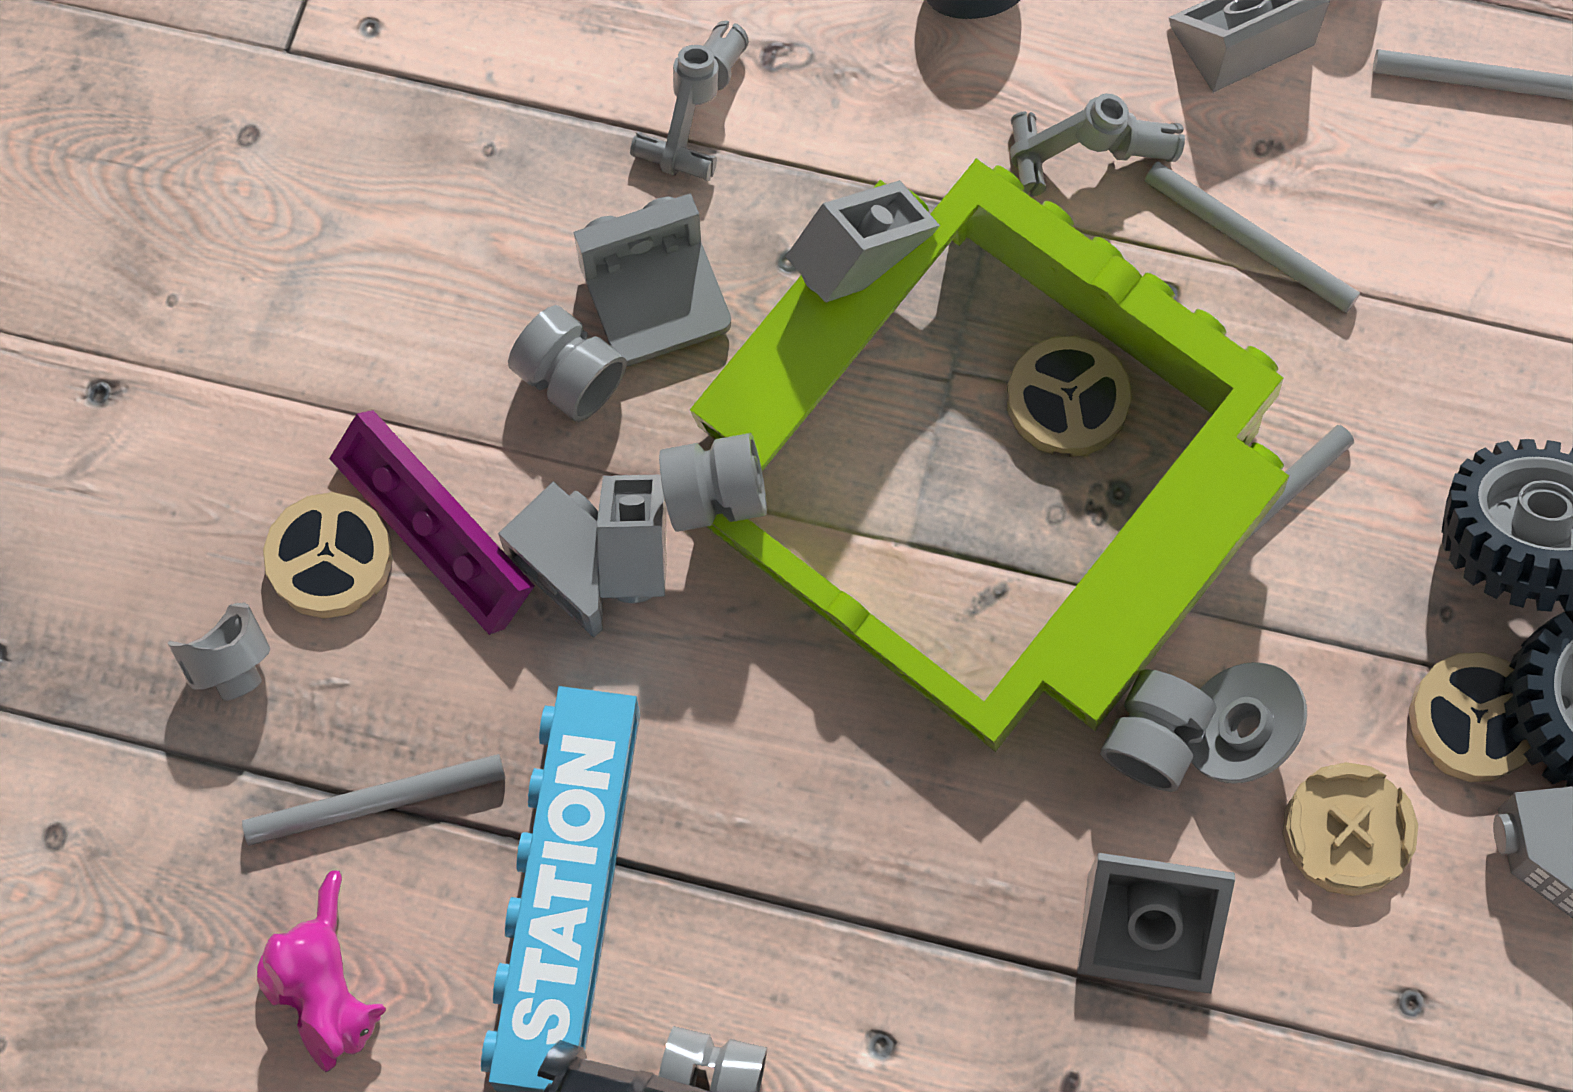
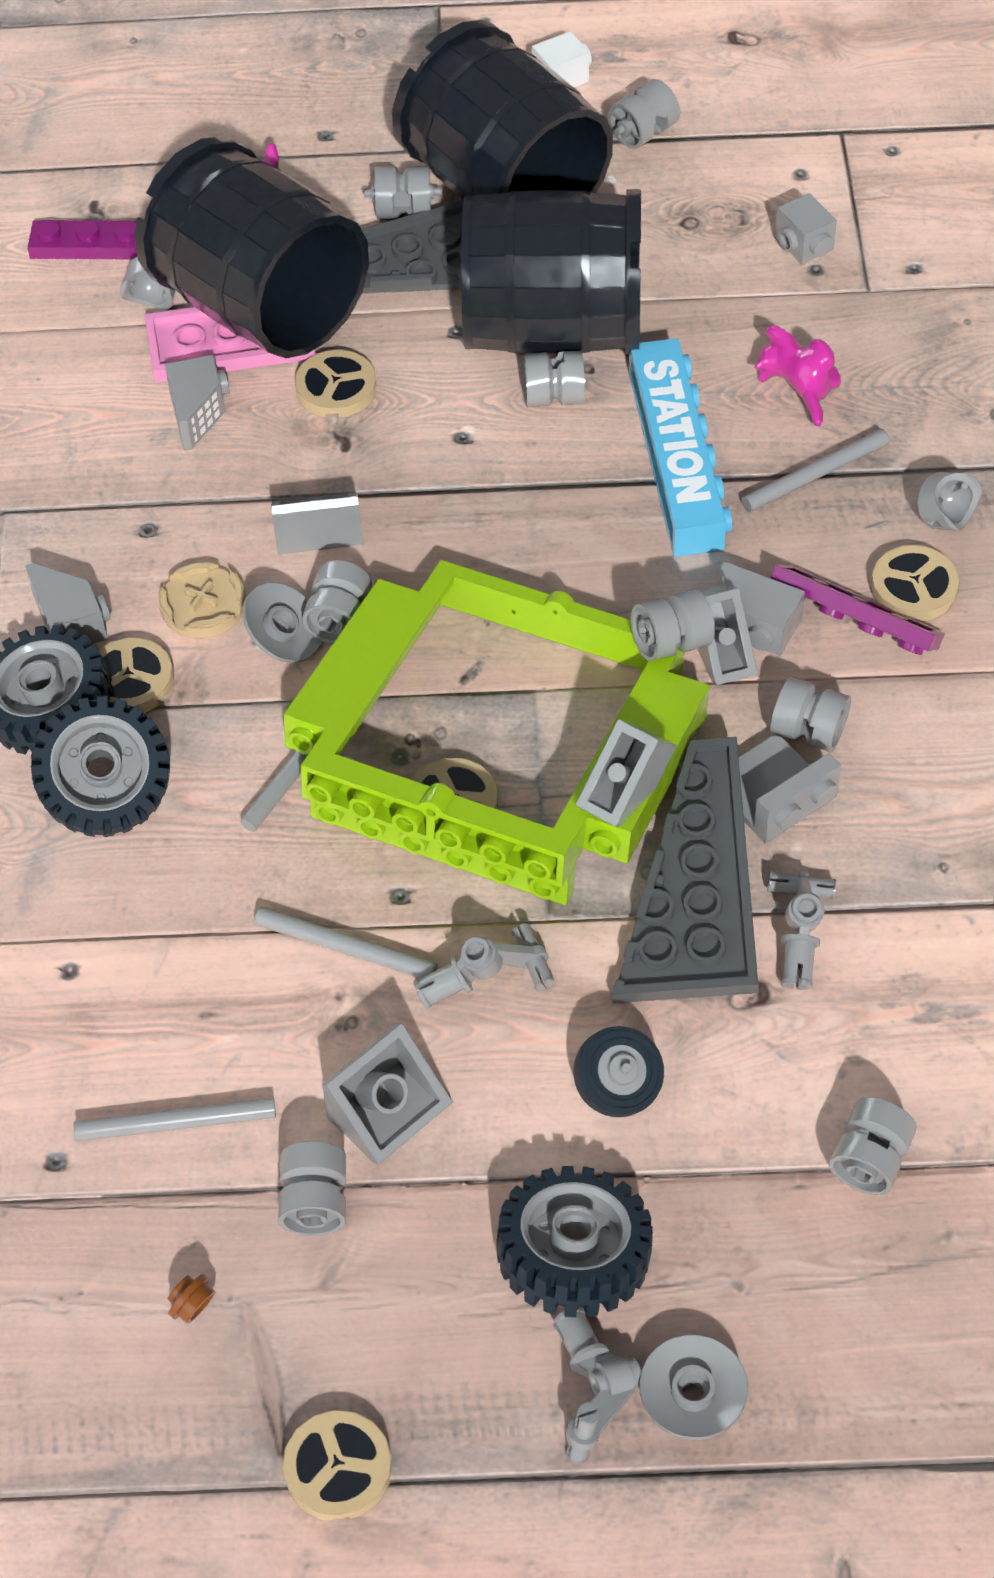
camera: 165 degrees right, 15 degrees down
(817, 134) = (696, 904): none -> dark grey wing

